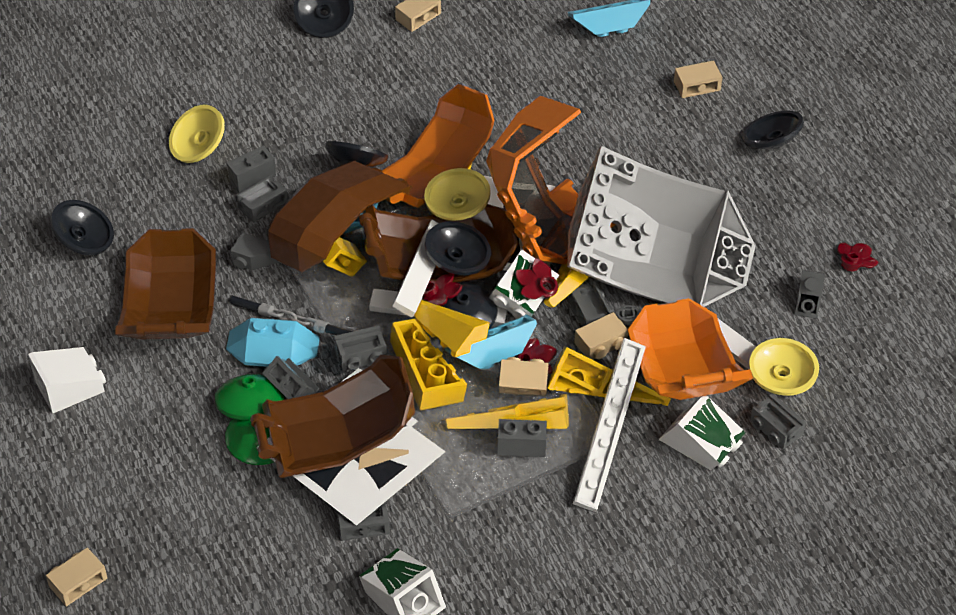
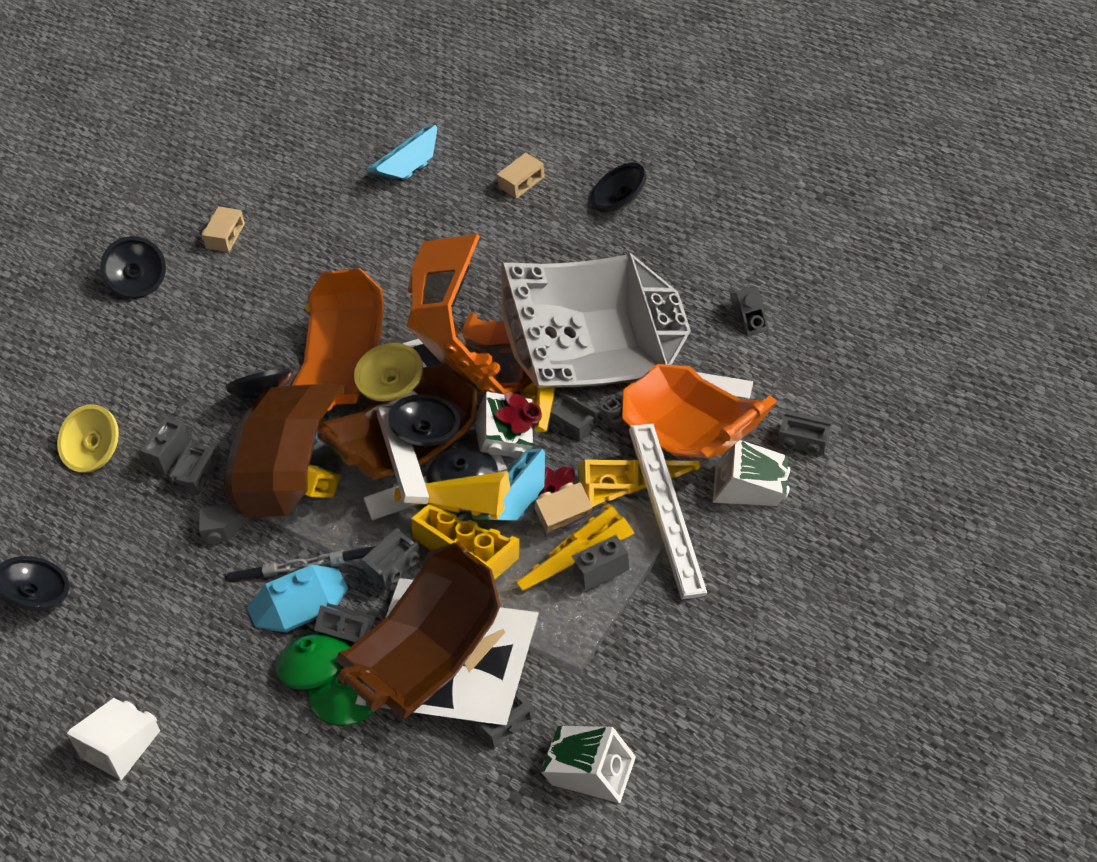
camera: 25 degrees left, 0 degrees up
(168, 286) = (161, 595): reddish brown windscreen -> none
(441, 289) = (435, 465): dark red plate -> none
(601, 336) = (600, 437): tan brick -> none
(786, 358) = (778, 375): light yellow dish -> none
(856, 256) = (762, 261): dark red plate -> none

